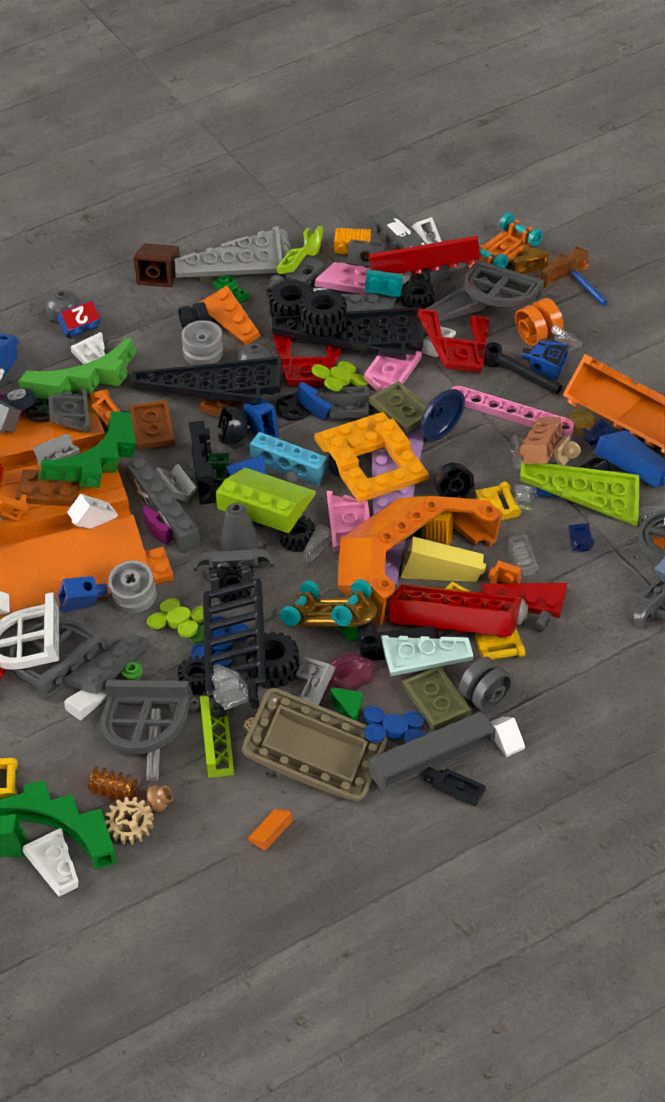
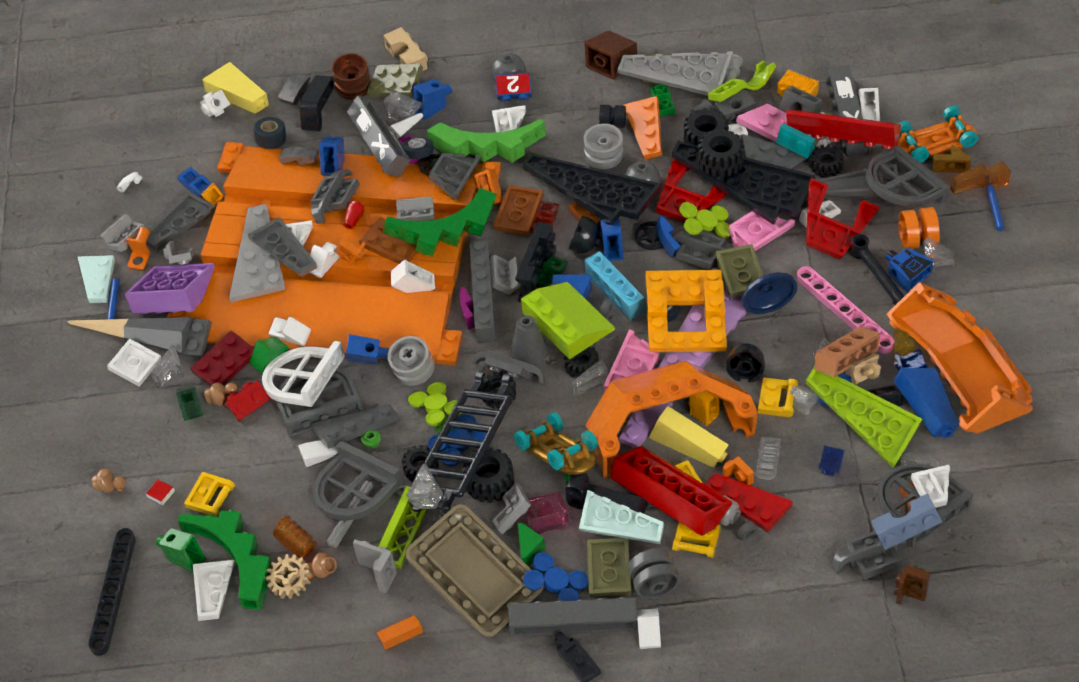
camera: 30 degrees right, 5 degrees up
(180, 424) = (546, 214): none -> clear red slope
(211, 770) = (377, 559): none -> light grey bracket

